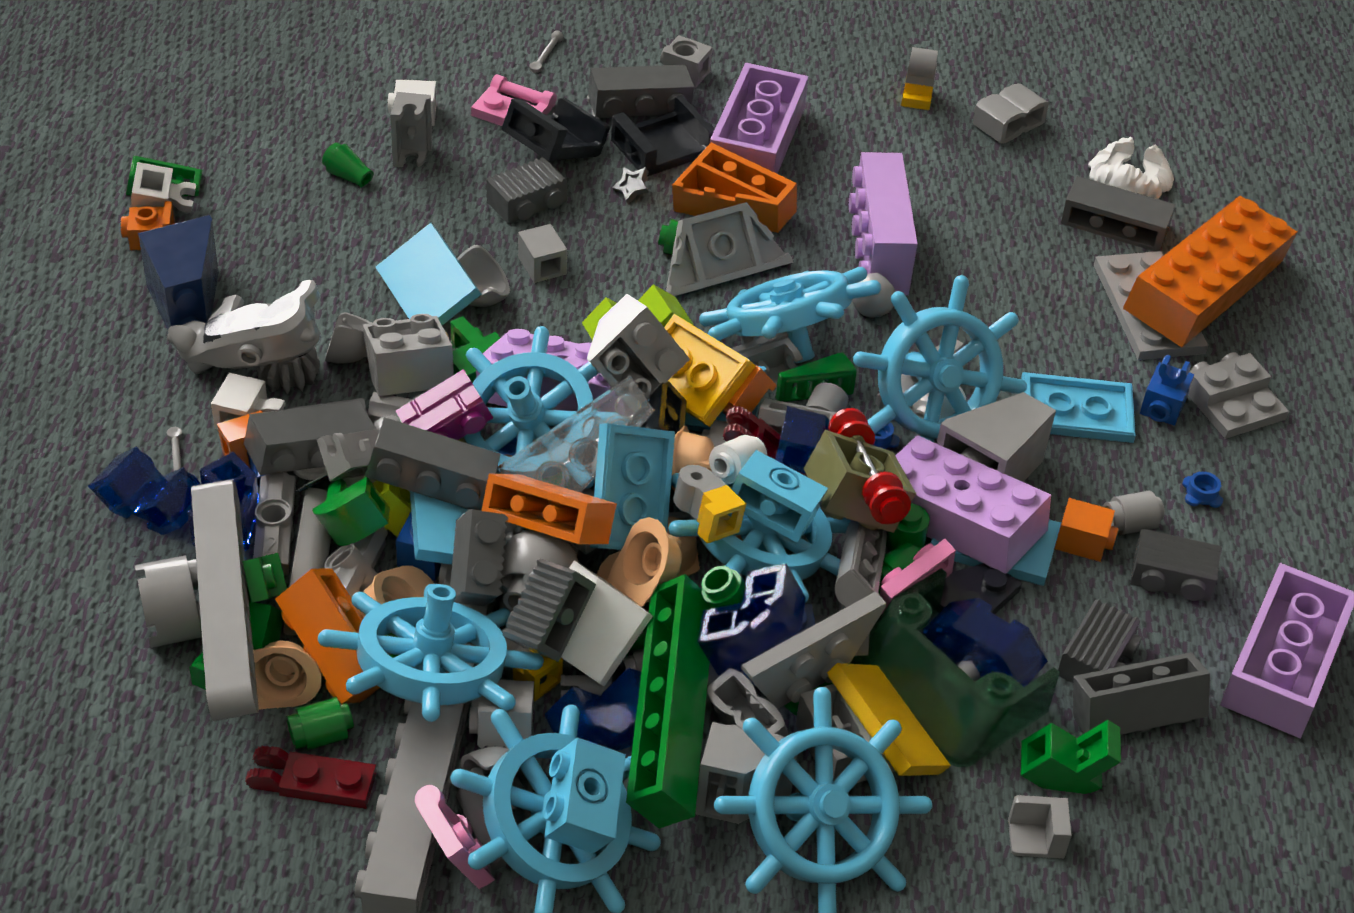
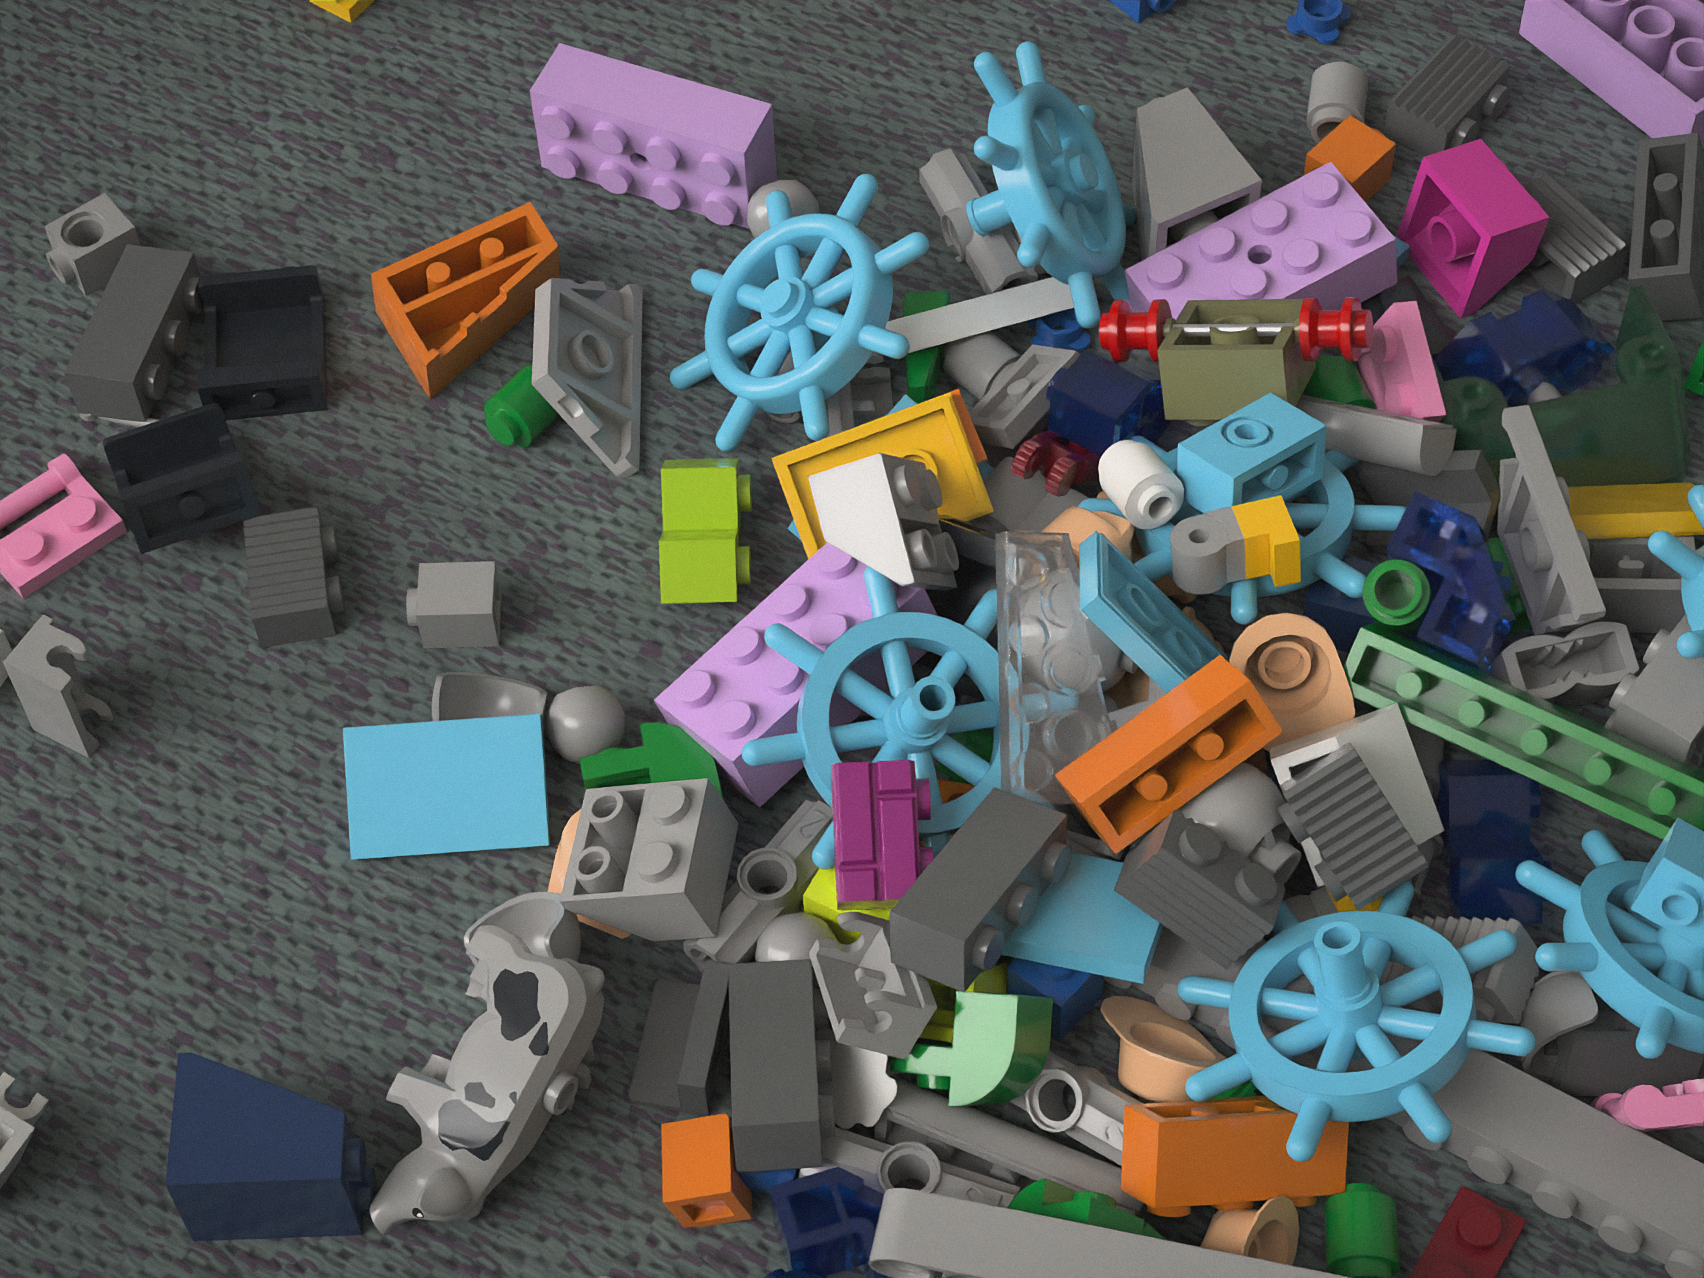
camera: 60 degrees left, 10 degrees up
(145, 219) = (69, 1206): orange brick -> none
(240, 397) = (610, 1157): white brick -> none
(344, 163) = (63, 822): green cone -> none
(492, 315) = (584, 722): none -> light grey piece
(632, 184) = (350, 427): piece -> none
(762, 115) = (317, 199): lavender brick -> none
(845, 385) = (983, 313): none -> white sticker
(1068, 585) = (1470, 225): none -> dark pink slope
(1086, 406) = (1115, 70): medium azure tile -> none

